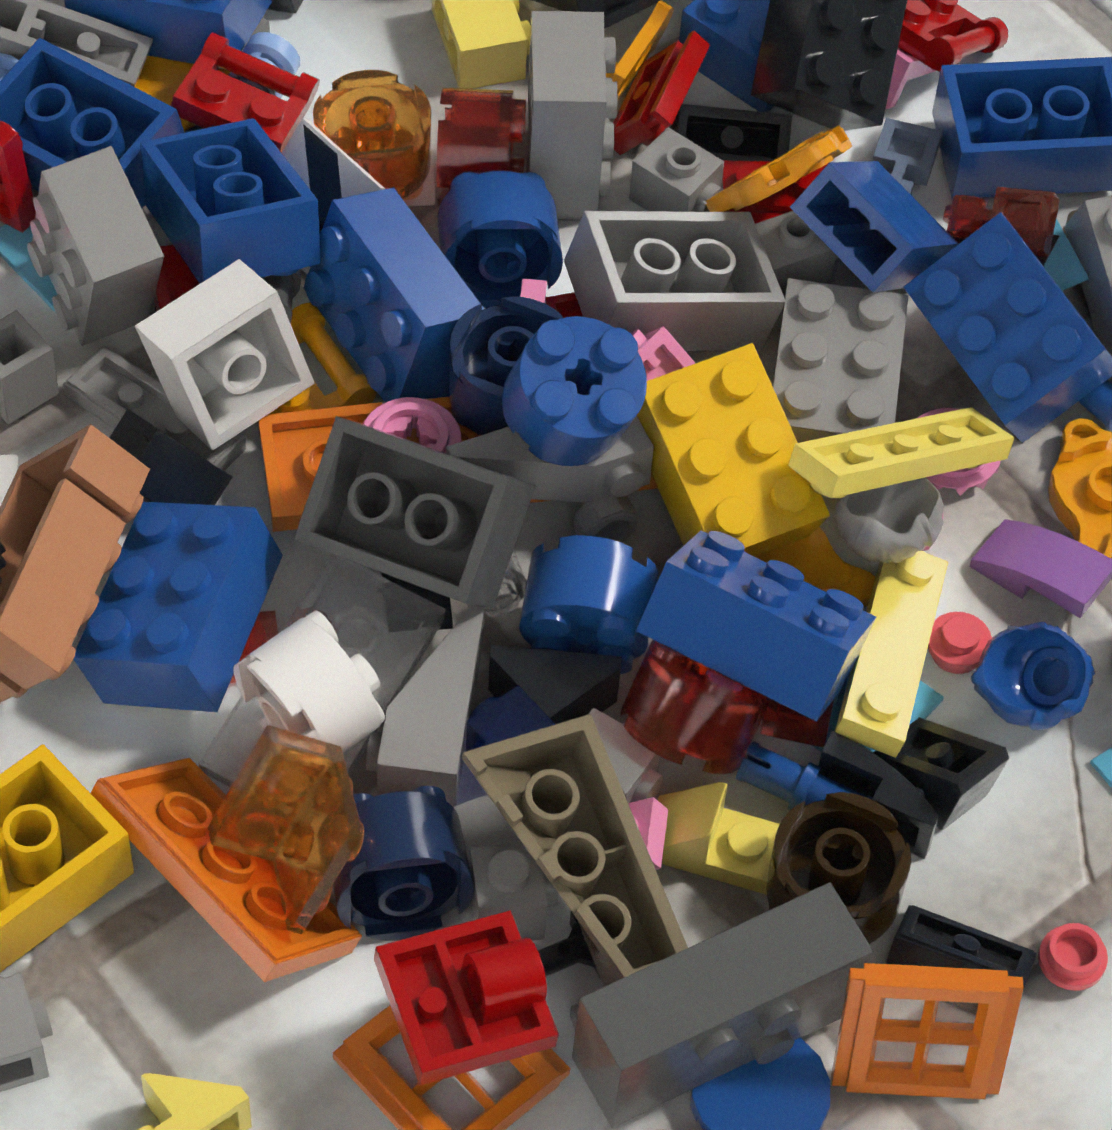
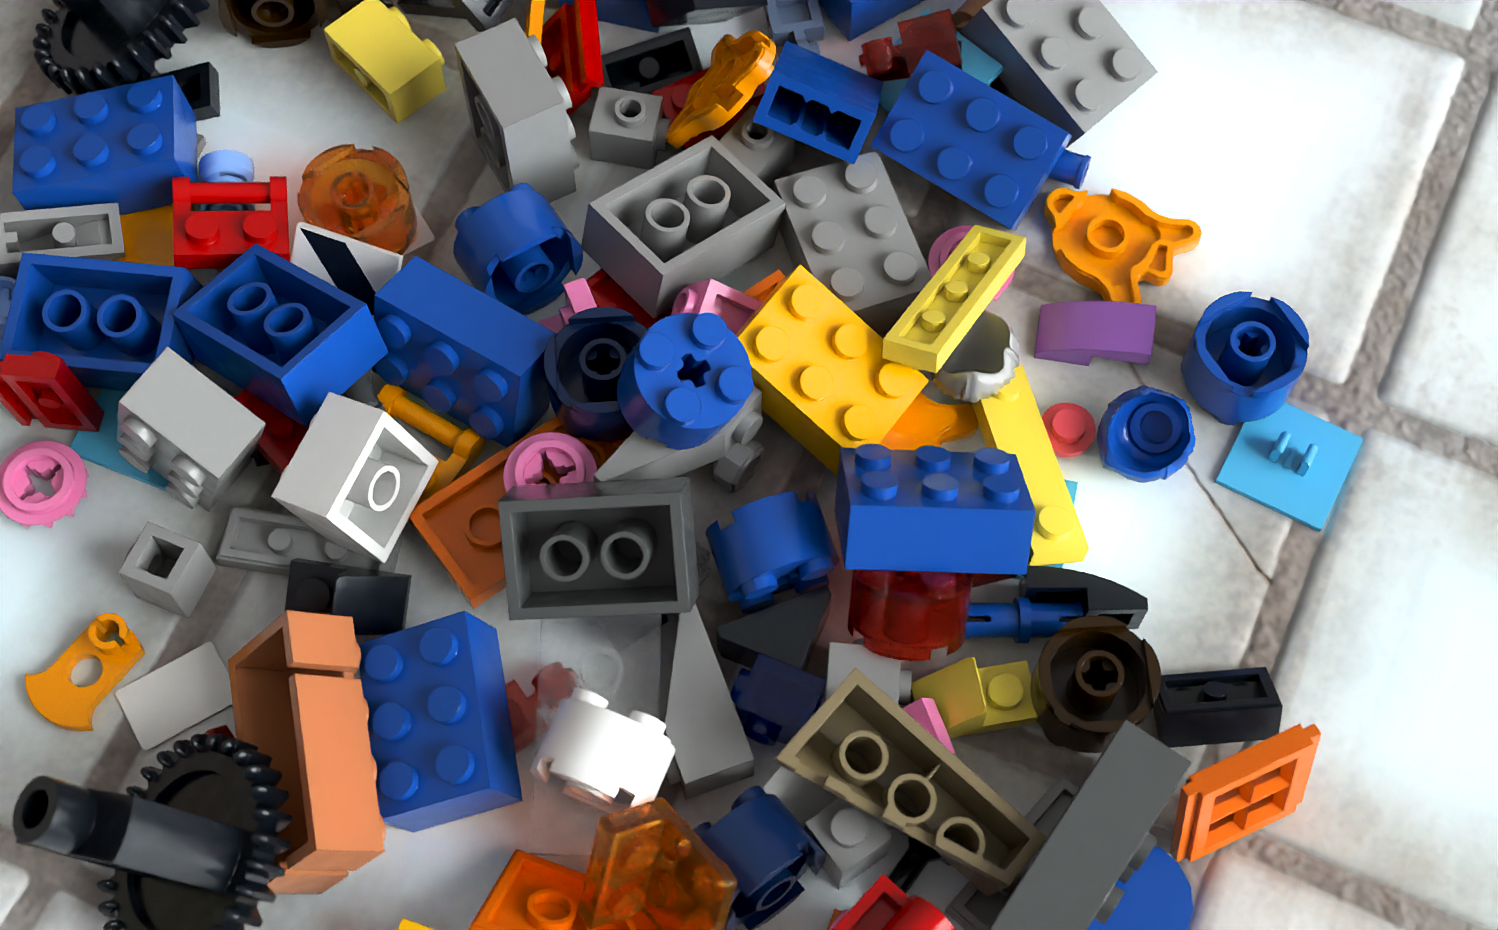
camera: 25 degrees left, 10 degrees up
(478, 133) = (452, 170): clear red brick -> none
(948, 767) = (1126, 548): black slope -> none
(1073, 957) = (1296, 658): coral plate -> none

